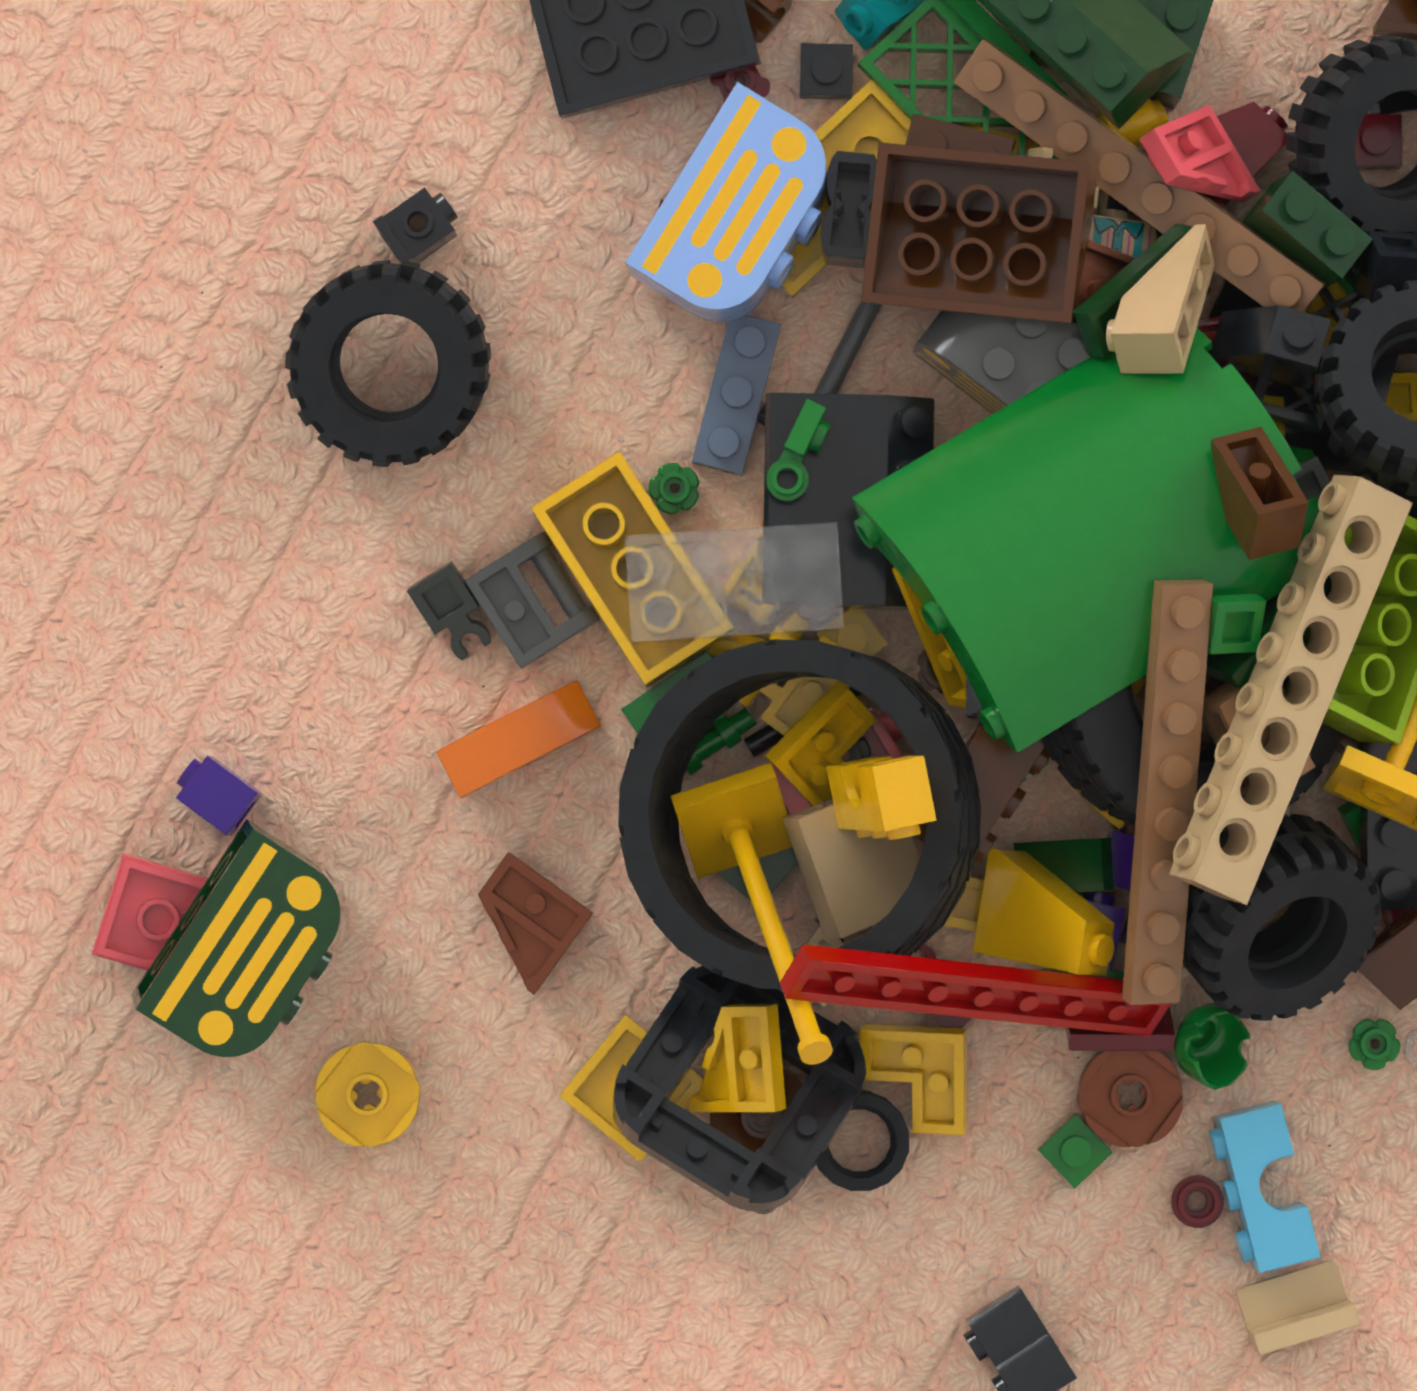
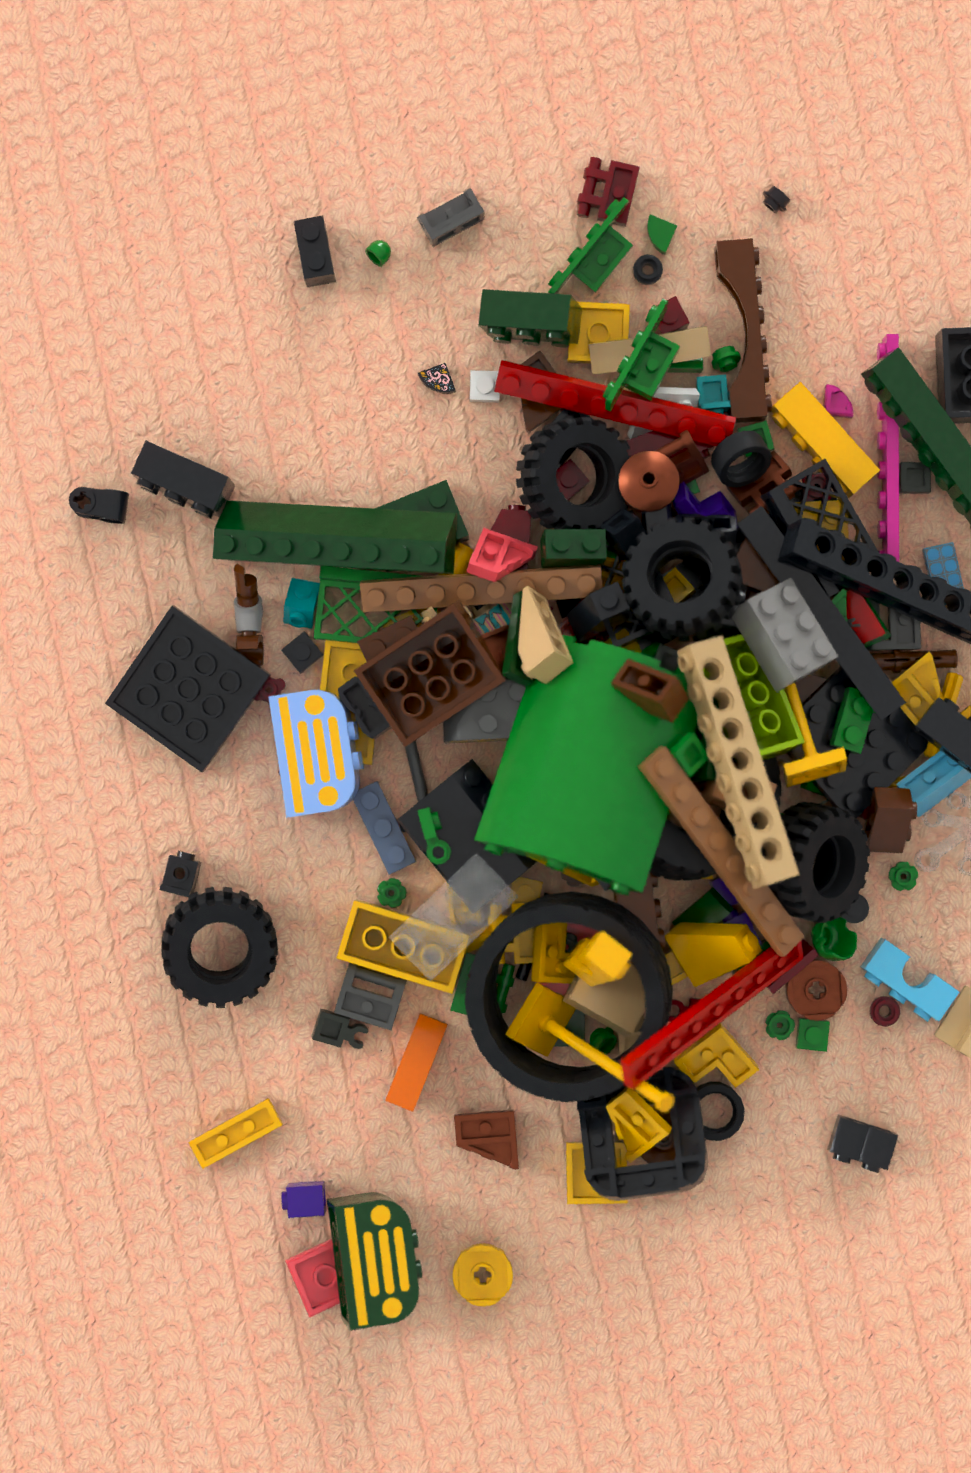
camera: 30 degrees left, 0 degrees up
(199, 630) = (235, 1133): none -> yellow plate
(795, 919) = (603, 1040): none -> green plate
(1027, 1100) = (787, 1025): none -> green plate
(1273, 1036) = (858, 911): none -> black plate

